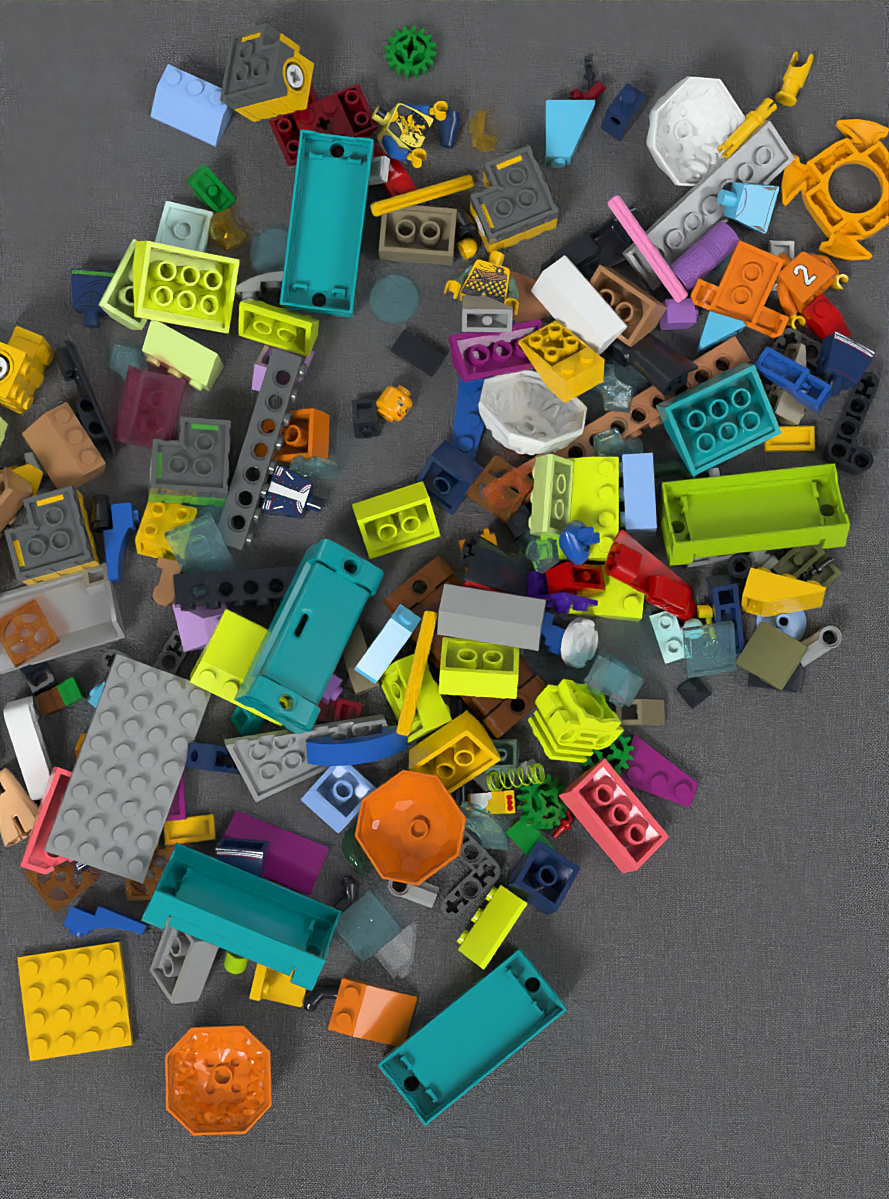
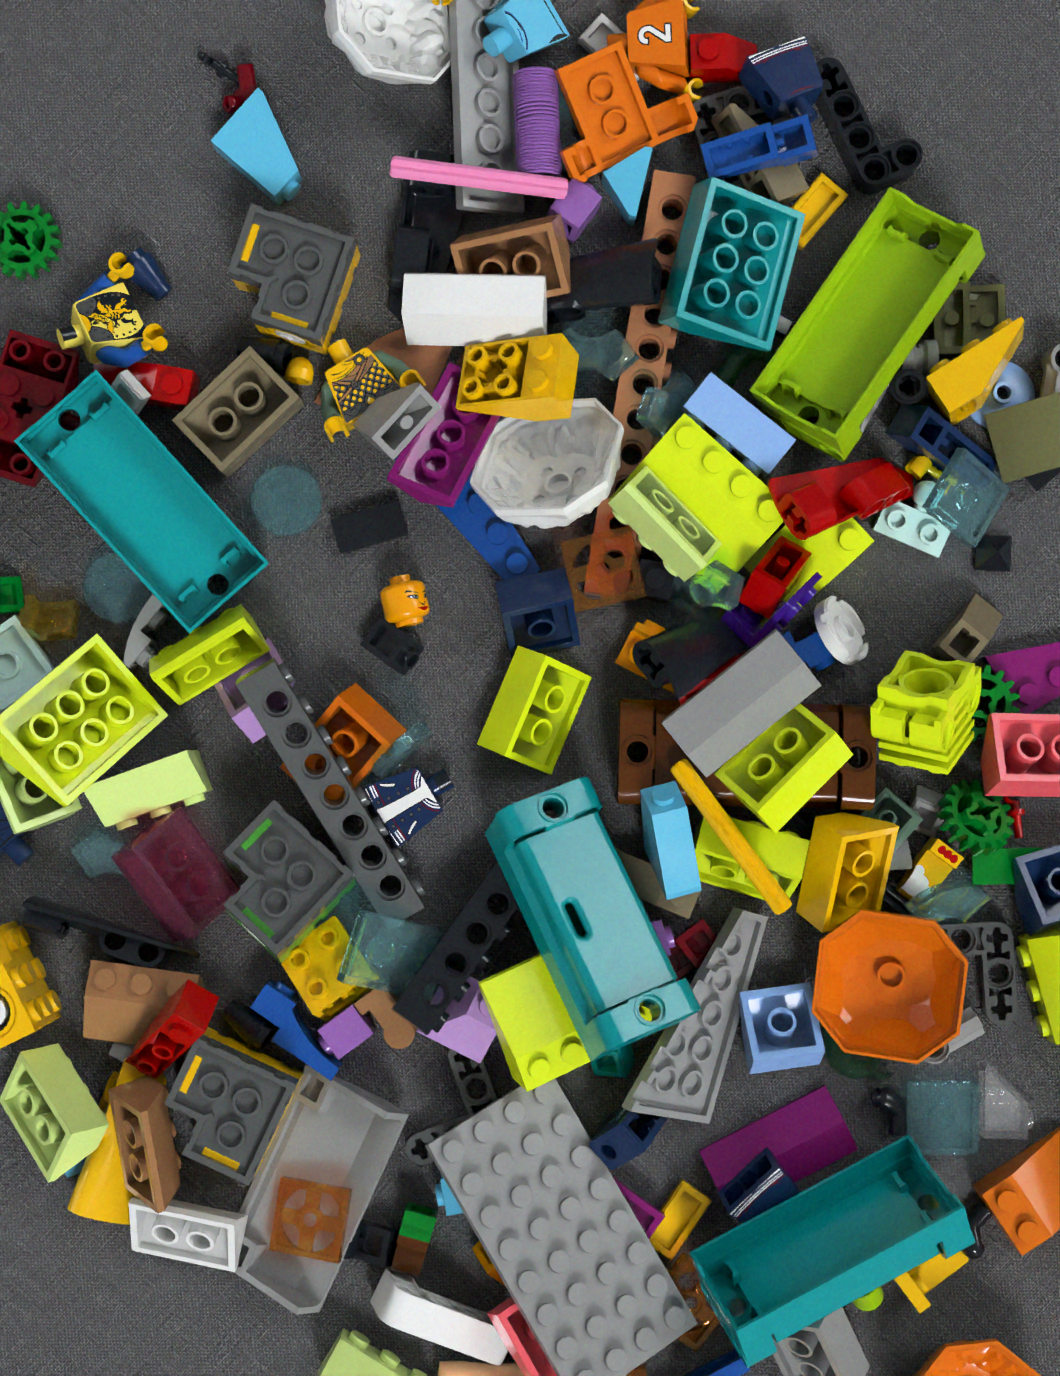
camera: 55 degrees left, 5 degrees up
(65, 472) = (174, 1029): none -> red slope
(140, 566) = (345, 1031): none -> medium lavender brick
(355, 750) = (751, 972): blue slope -> none
(422, 195) = (200, 370): yellow axle -> none
(477, 127) = (174, 243): clear yellow bracket -> none
(533, 775) = (953, 796): lime piece -> none
(576, 541) = (739, 540): blue piece -> none
(614, 678) = (917, 626): clear light blue slope -> none
(626, 108) = (297, 65): dark blue torso -> none
(817, 568) = (978, 307): black hand -> none

